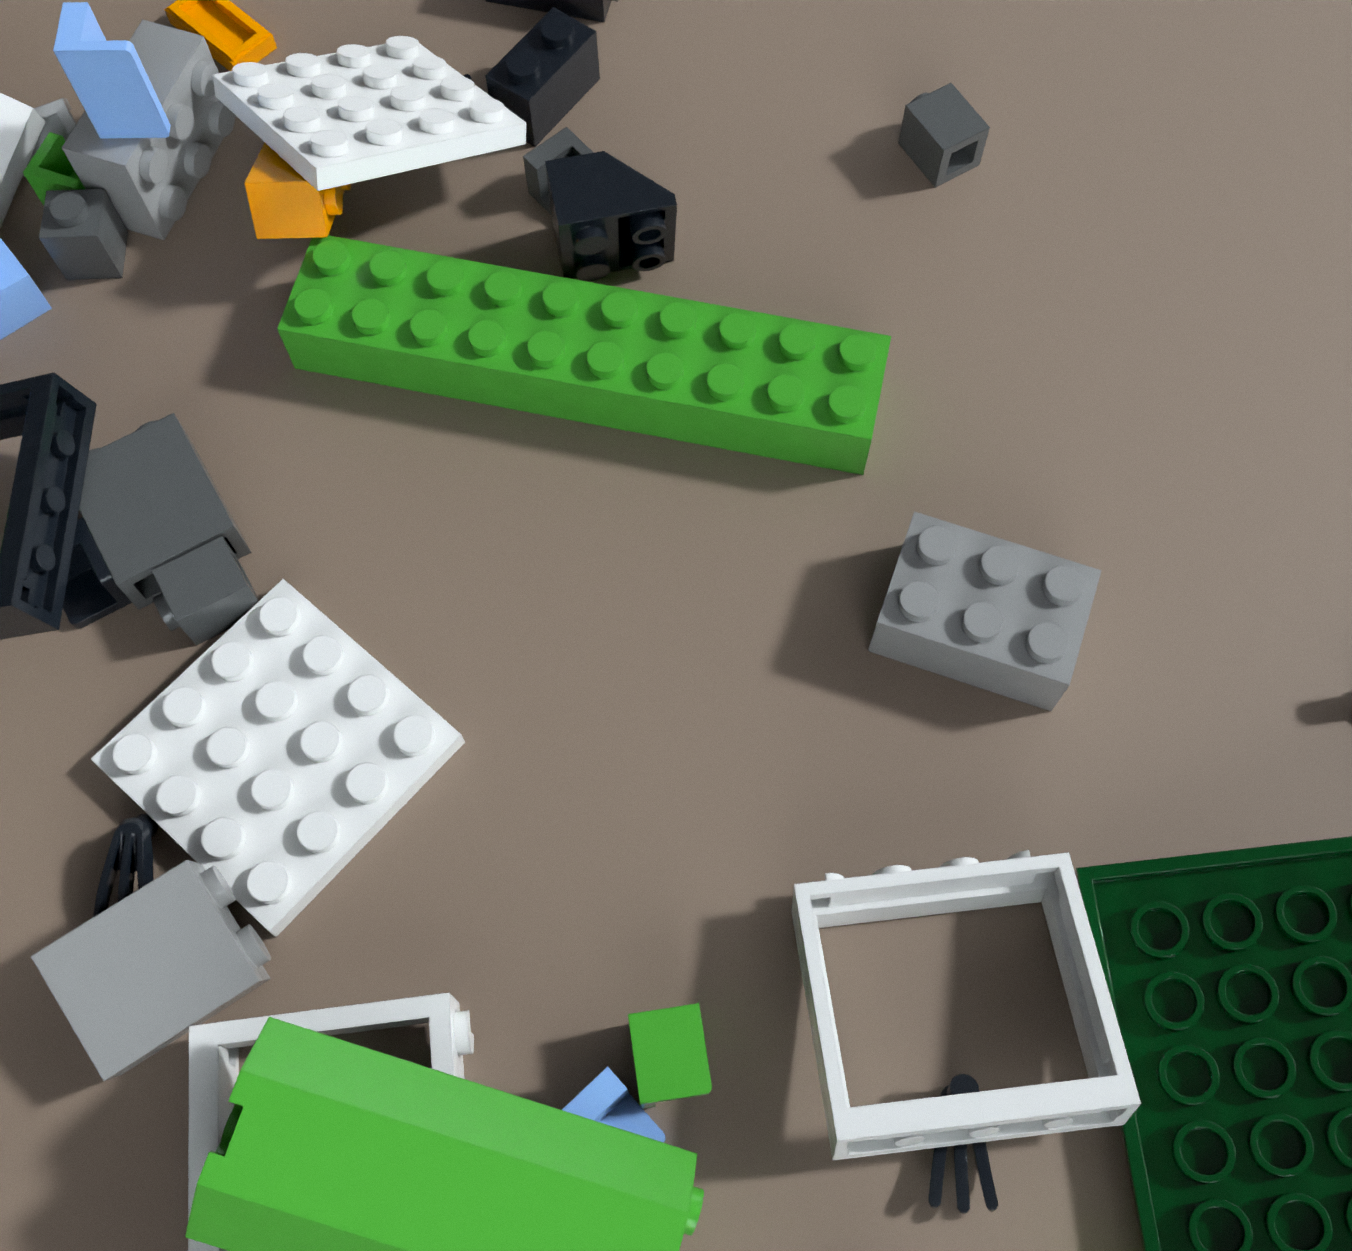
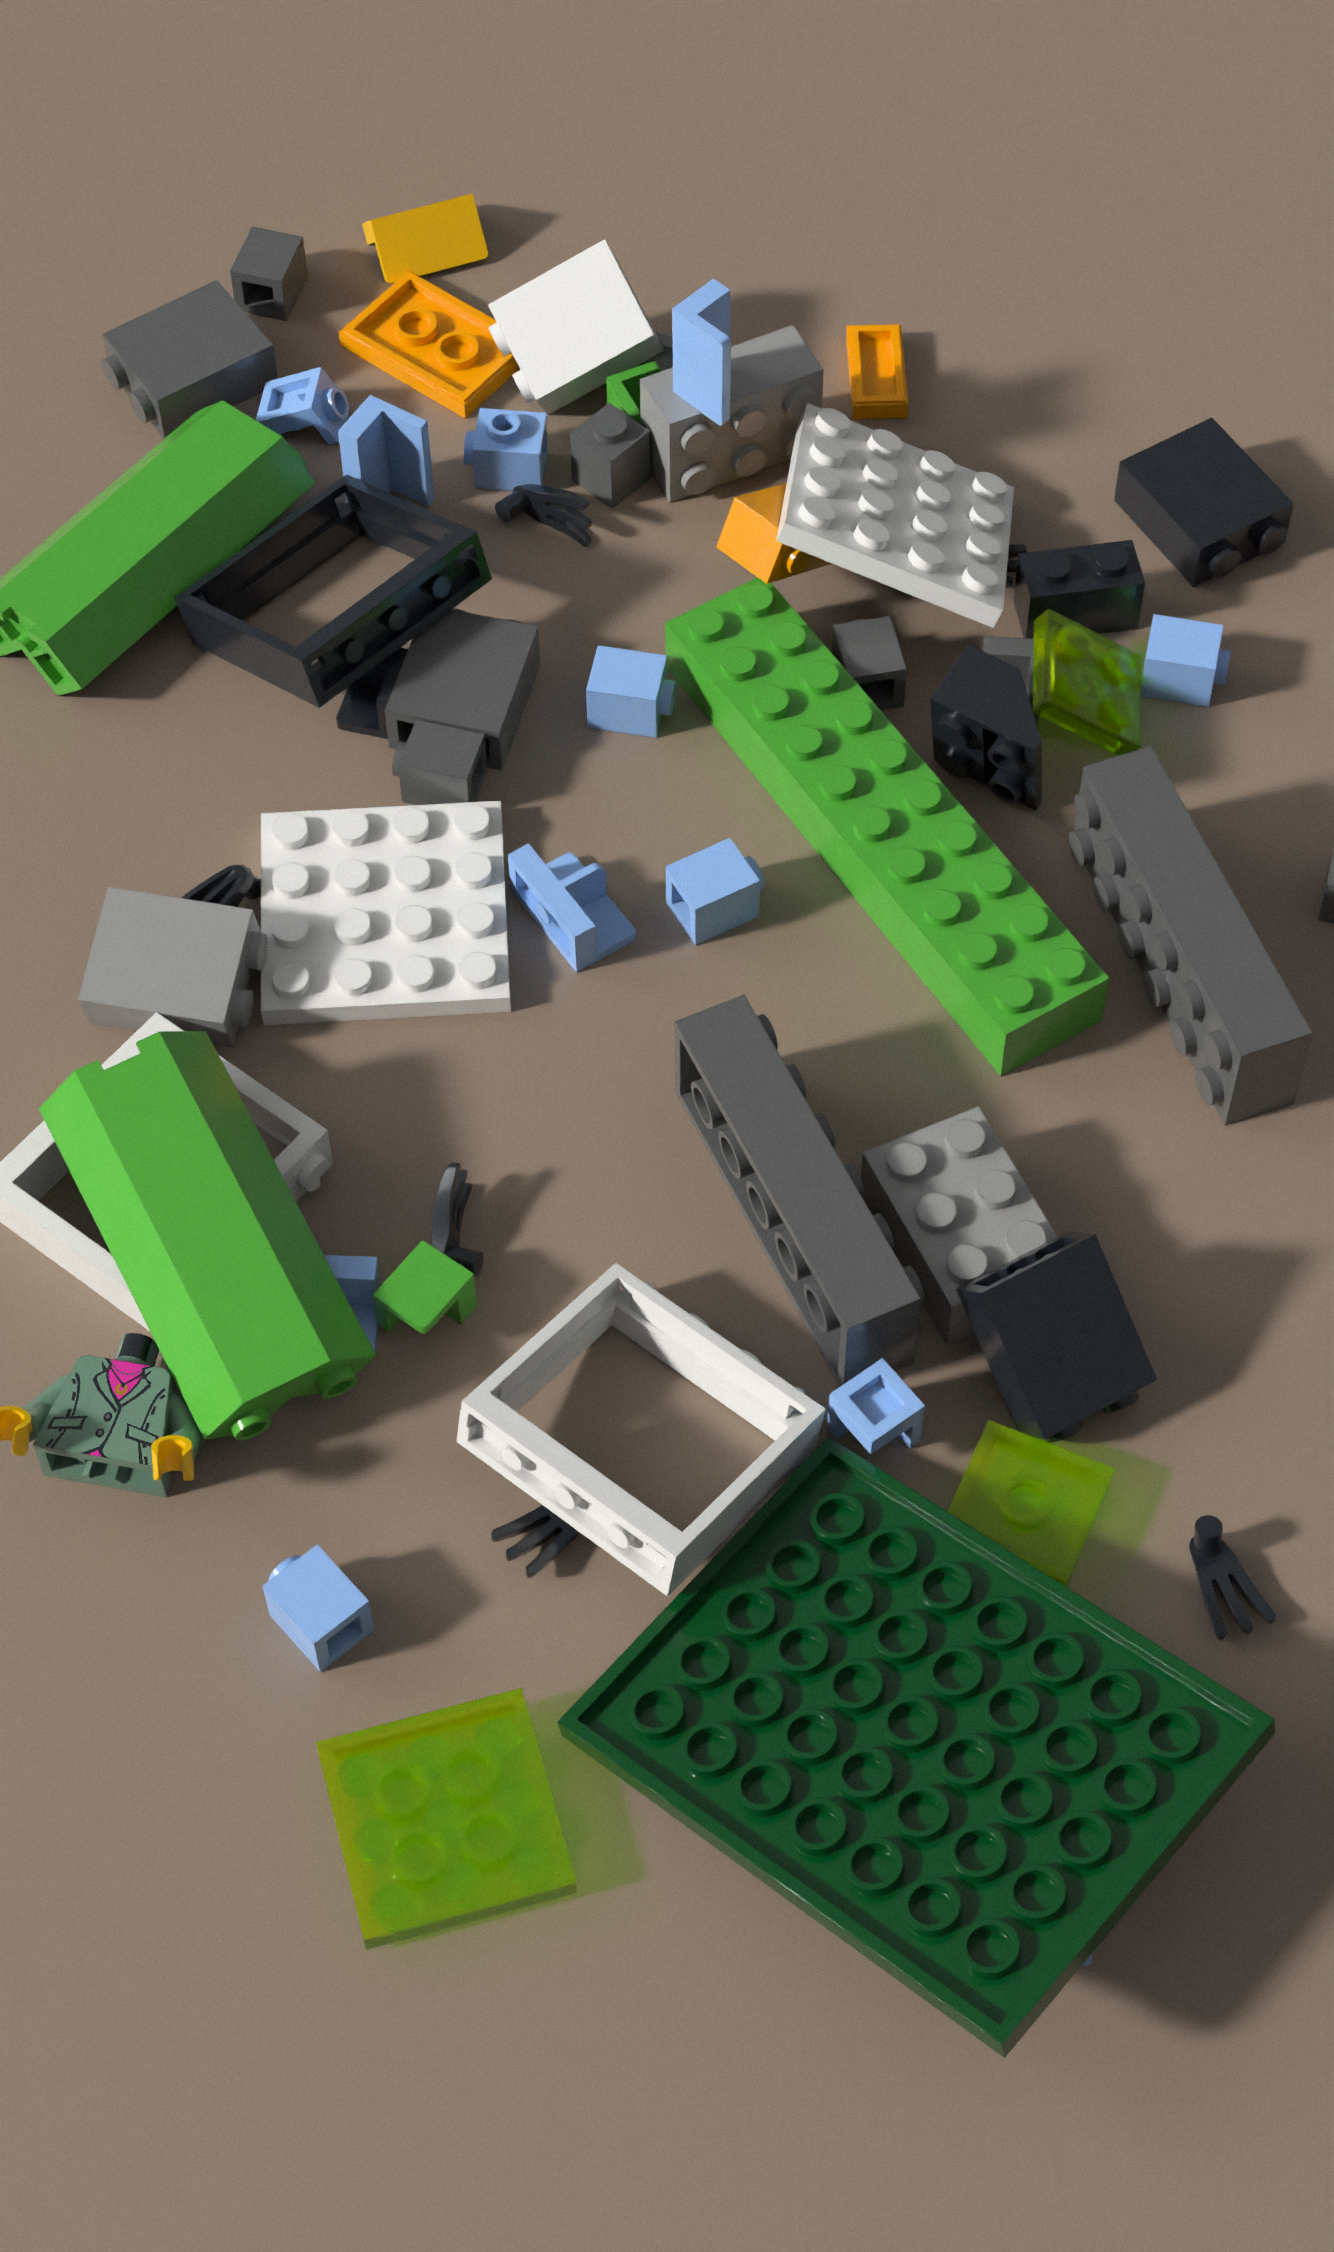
camera: 45 degrees right, 10 degrees down
(75, 312) = (550, 507): none -> black piece
(295, 407) = (629, 691): none -> light blue brick
(425, 616) = (570, 905): none -> light blue panel
(453, 232) = (873, 659): none -> dark grey brick
(526, 510) = (714, 890): none -> light blue brick
(626, 131) = (1086, 683): none -> clear neon green plate
(638, 996) = (448, 1216): none -> black piece
(664, 73) = (1184, 660): none -> light blue brick
(862, 696) = (796, 1190): none -> dark grey brick
(899, 258) = (1189, 937): none -> dark grey brick
(1094, 815) = (876, 1409): none -> light blue panel
(1154, 636) = (1057, 1336): none -> black brick
(1249, 781) = (1032, 1498): none -> clear neon green plate

